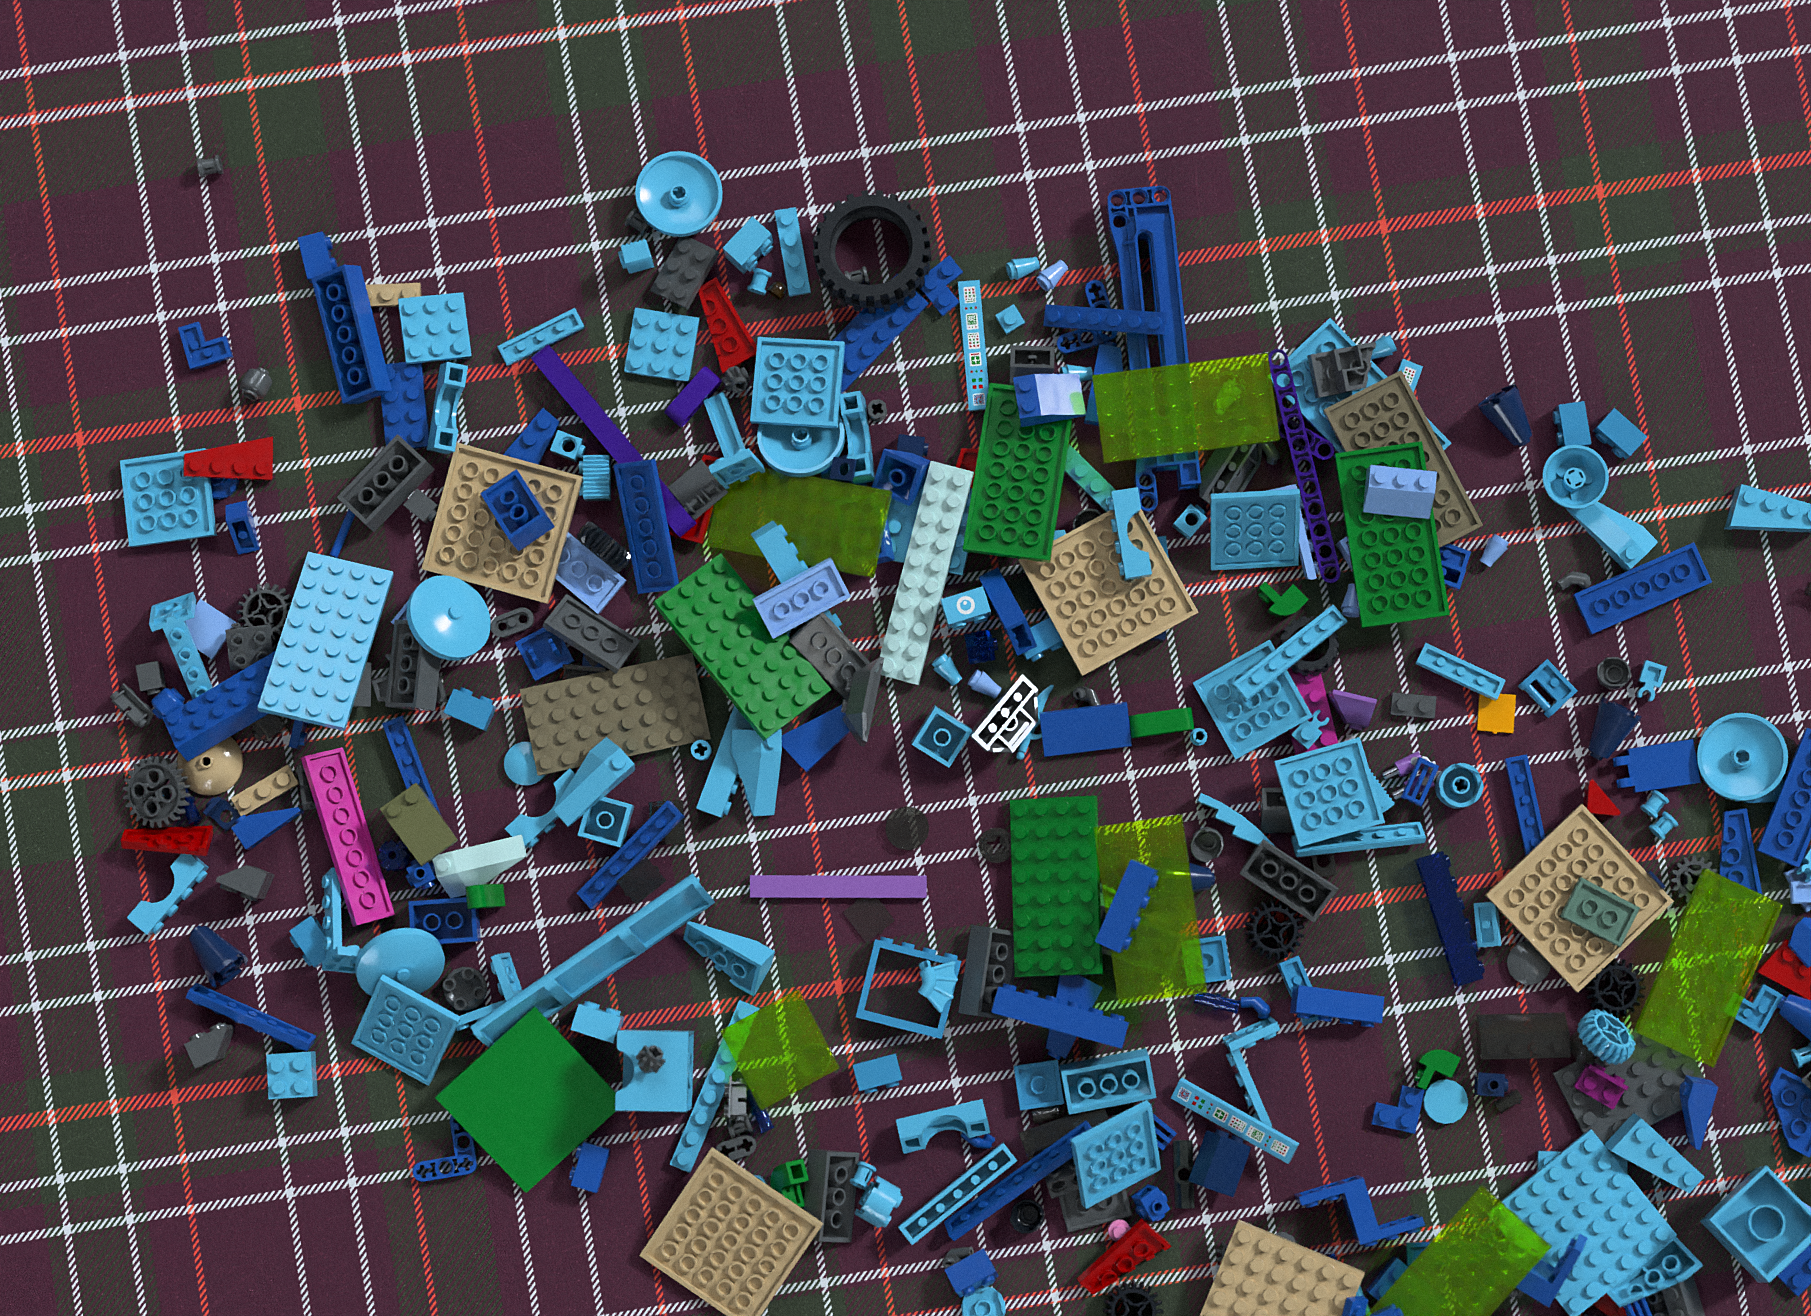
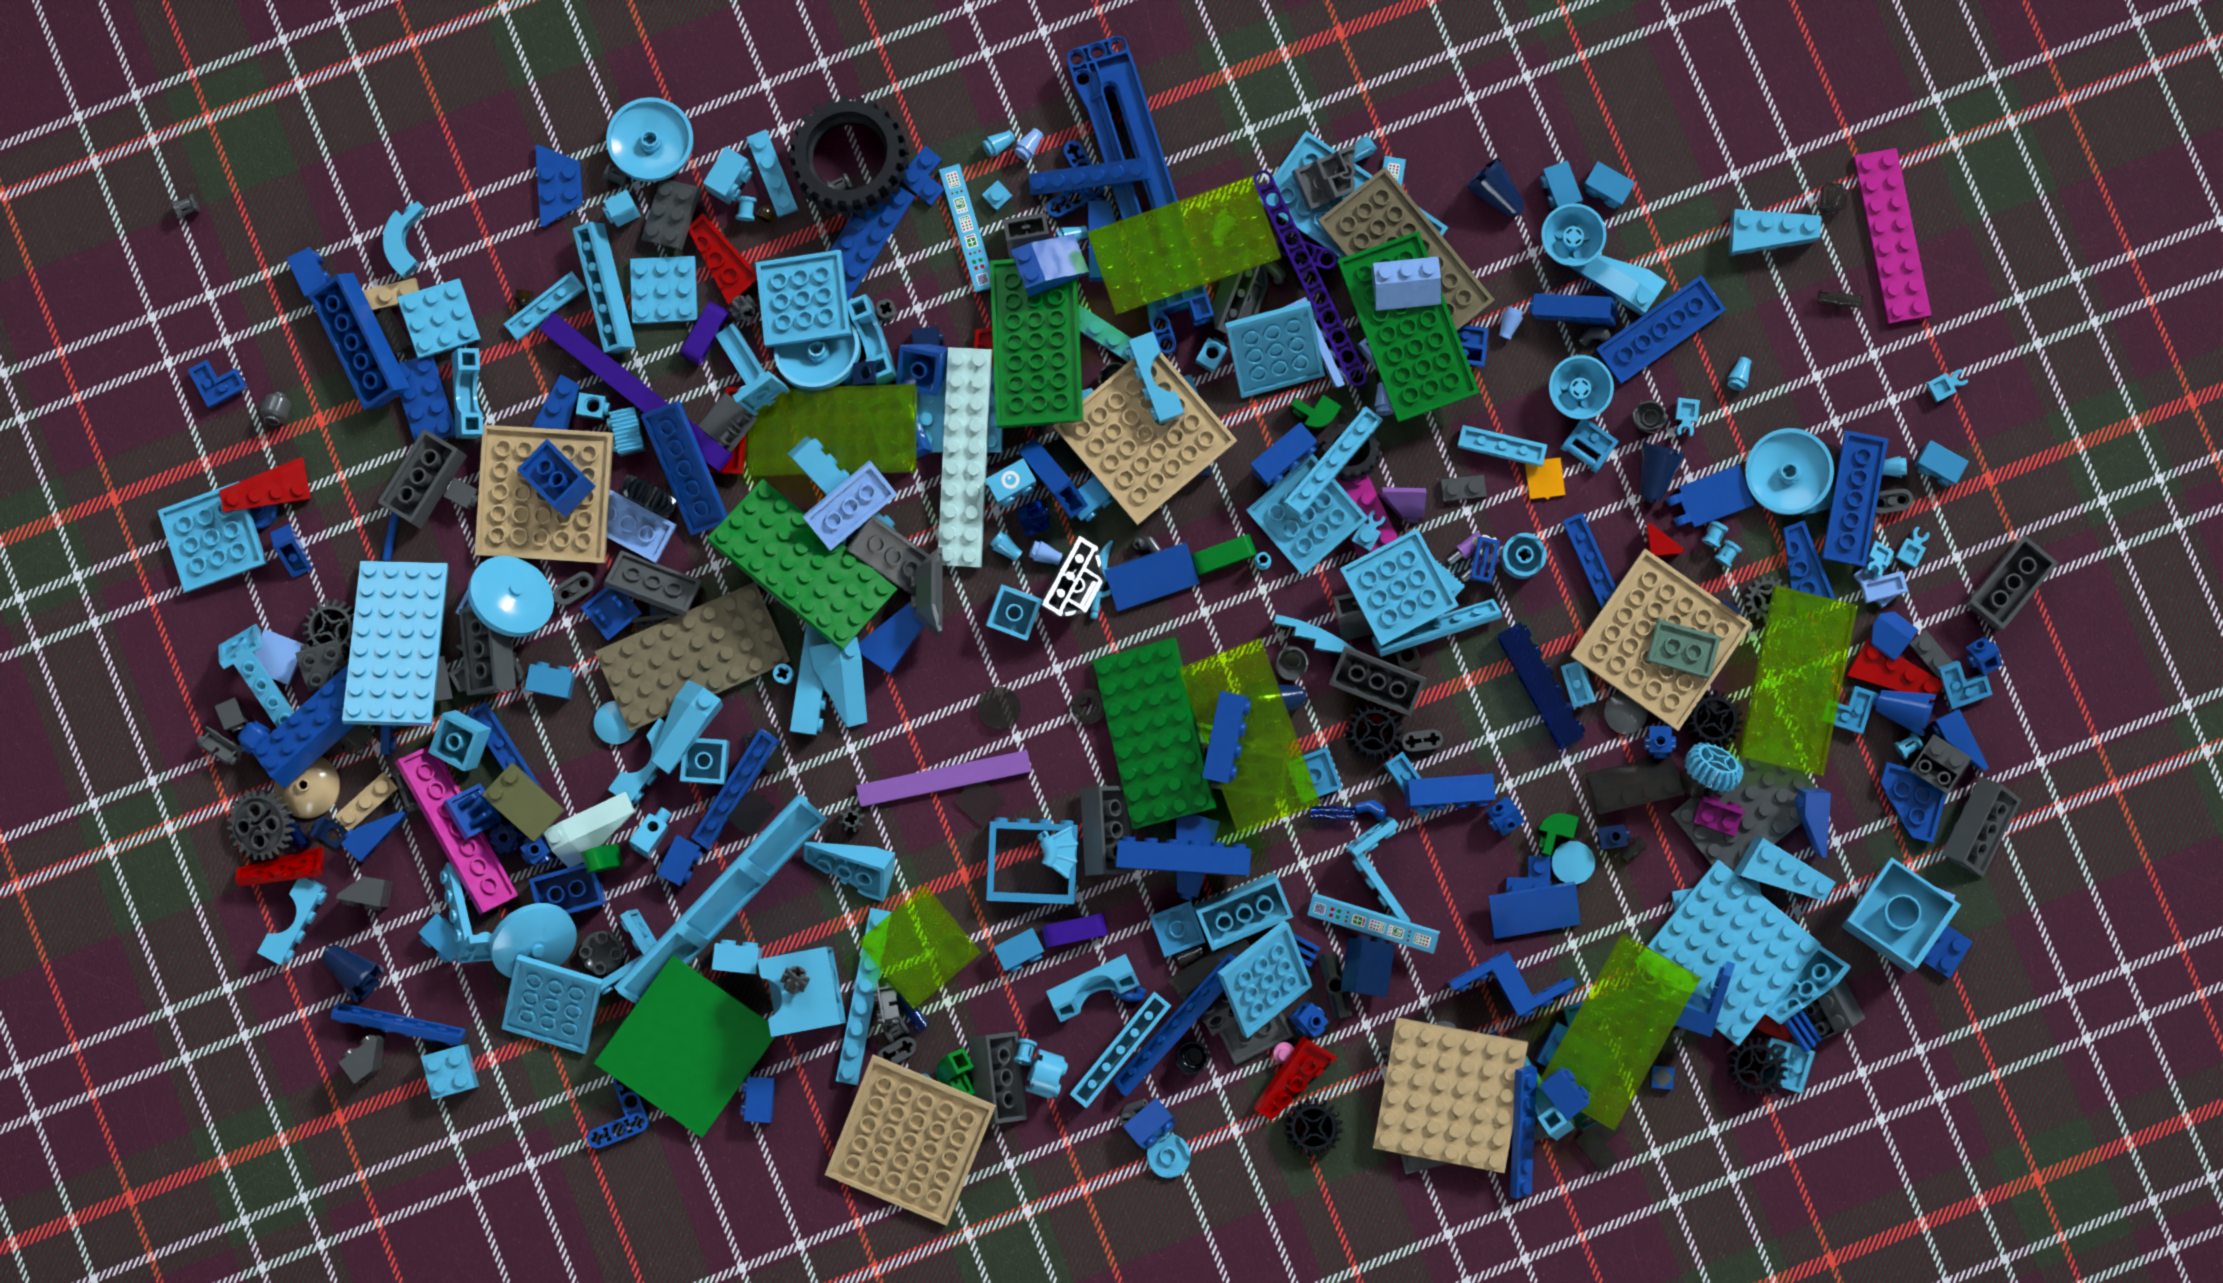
camera: 15 degrees left, 0 degrees up
(366, 822) = (472, 811): none -> blue plate
(369, 749) = (459, 740): none -> medium azure brick
(387, 331) = (393, 331): none -> clear smoke tile
(408, 240) = (395, 239): none -> medium azure arch
(522, 324) = (523, 297): none -> dark brown hinge
(530, 887) = (646, 841): none -> medium azure torso
(561, 914) = (680, 860): none -> blue brick
(579, 219) = (558, 185): none -> blue wing
(603, 331) = (604, 287): none -> medium azure brick
(743, 912) = (857, 822): none -> dark grey gear
(936, 1064) = (1074, 930): none -> dark purple beam
(1242, 637) = (1284, 455): none -> blue slope
(1319, 953) = (1423, 746): none -> dark grey beam
(1387, 1041) = (1504, 816): none -> blue brick
(1397, 1140) = (1534, 910): none -> blue tile
(1560, 550) = (1575, 309): none -> blue slope
(1561, 992) = (1662, 734): none -> blue brick
(1563, 633) = (1589, 378): none -> medium azure piece
(1712, 649) = (1739, 375): none -> medium azure cone

